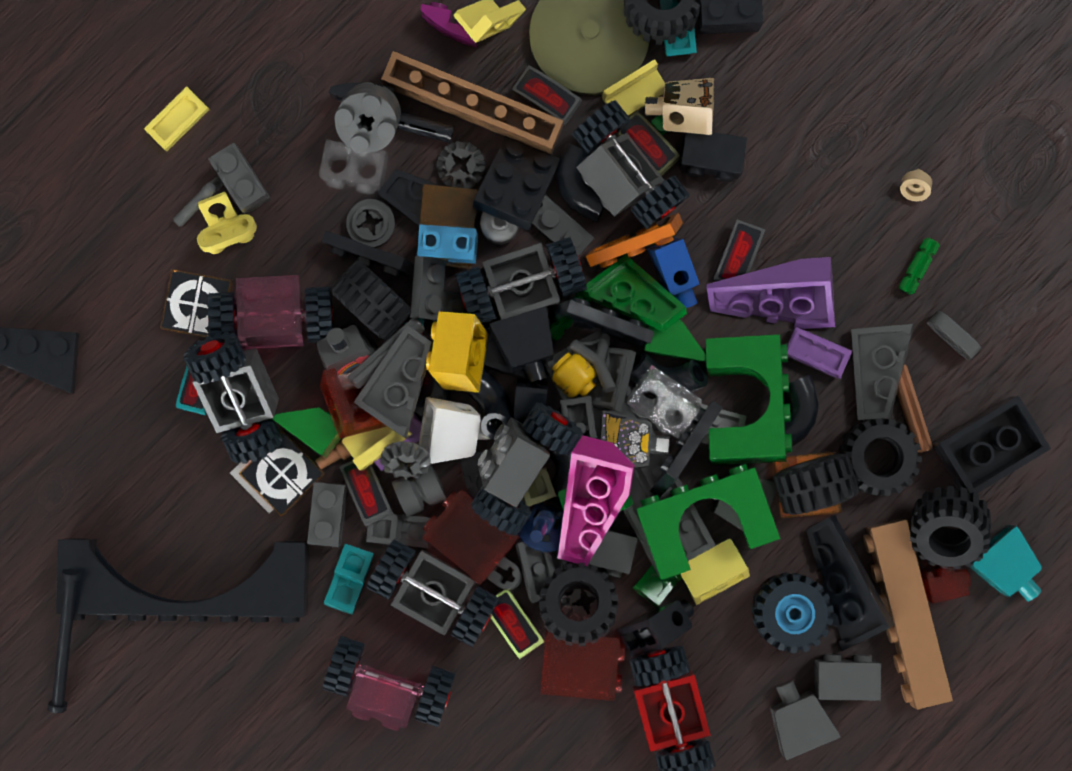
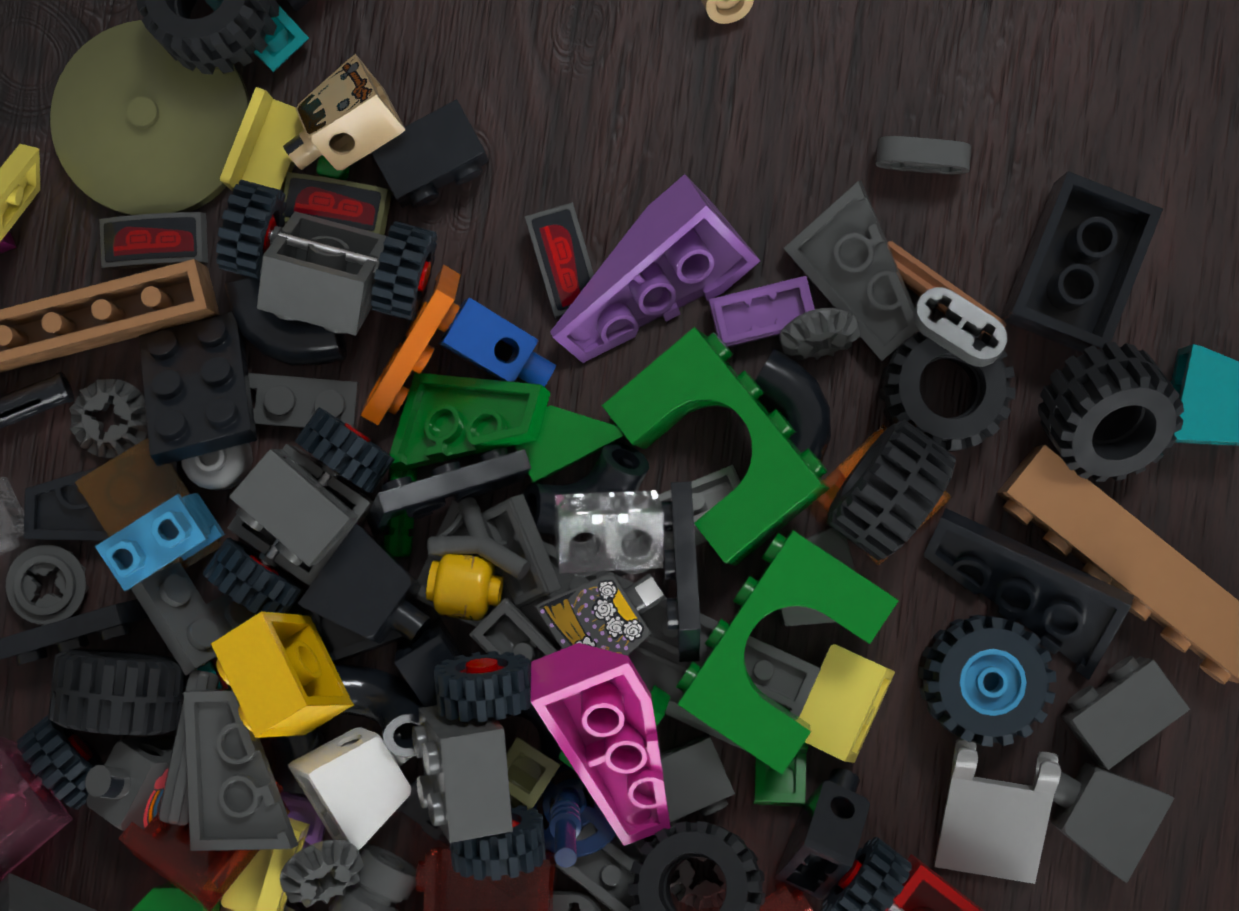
camera: 35 degrees left, 0 degrees up
(523, 276) = (292, 508): none -> dark grey brick
(743, 685) = (994, 823): none -> light grey flag
(837, 383) = (819, 333): none -> dark grey gear
(914, 427) = (952, 336): none -> beam
(919, 266) = (809, 99): green axle -> none
(945, 584) = (1158, 490): clear red brick -> none

